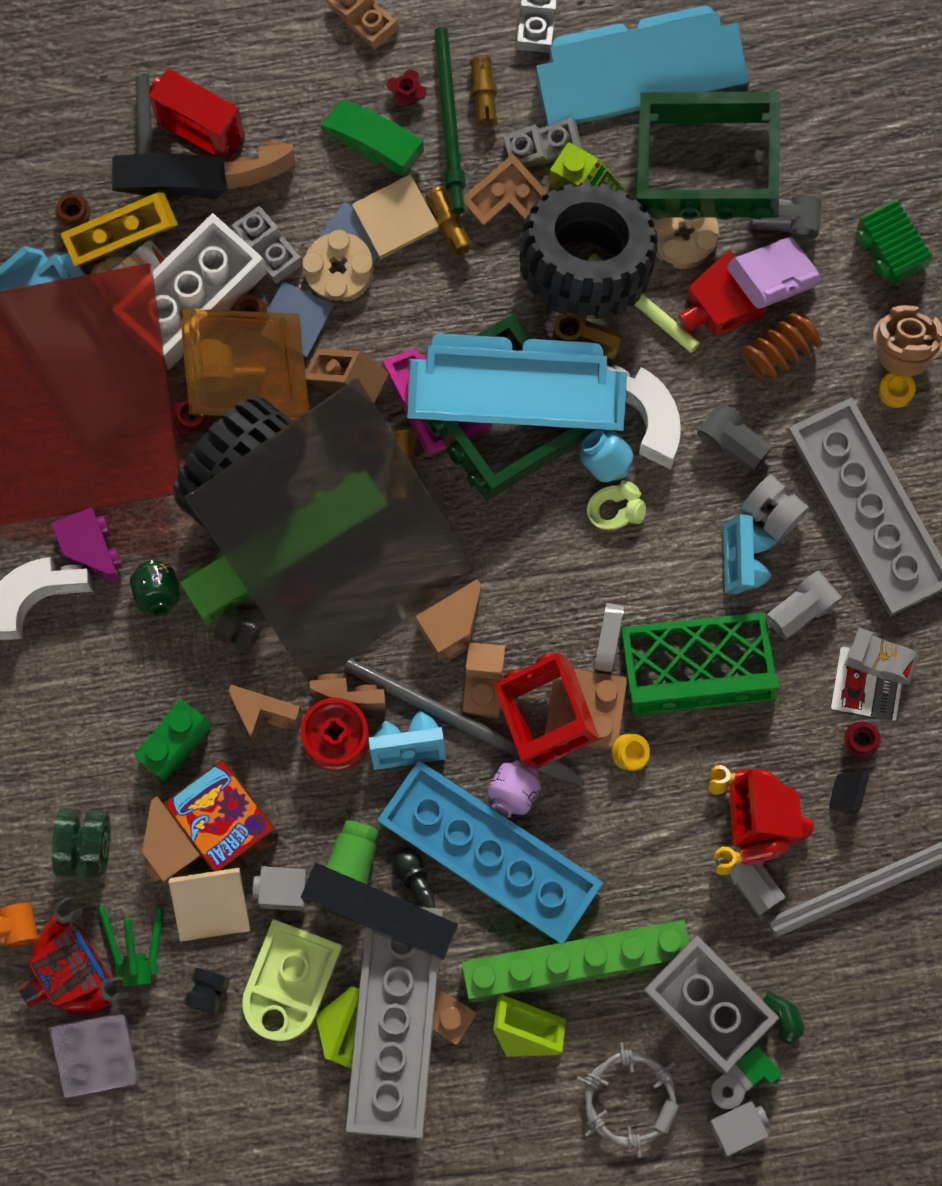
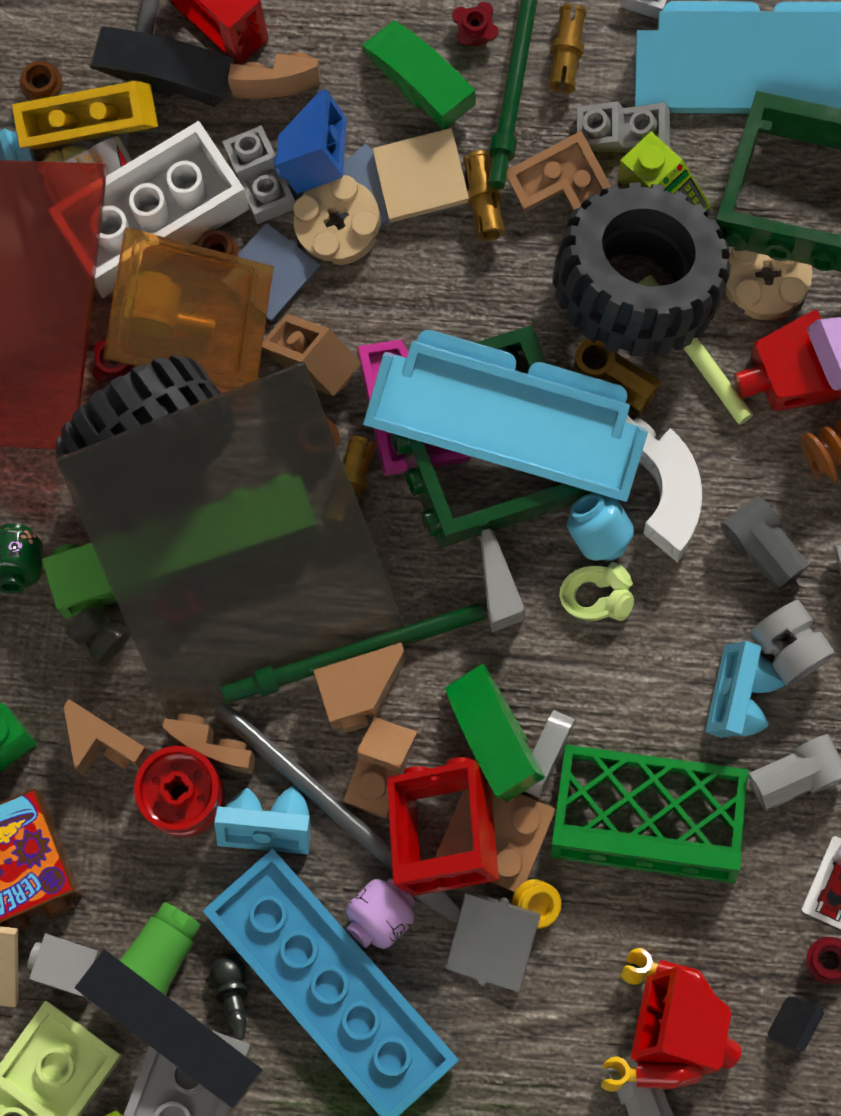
camera: 20 degrees right, 0 degrees up
(305, 212) = (313, 145): none -> blue slope
(381, 633) = (268, 680): none -> dark green bar
(543, 524) = (501, 593): none -> light grey slope
(566, 631) = (493, 734): none -> green slope
(605, 788) = (493, 941): none -> dark grey piece

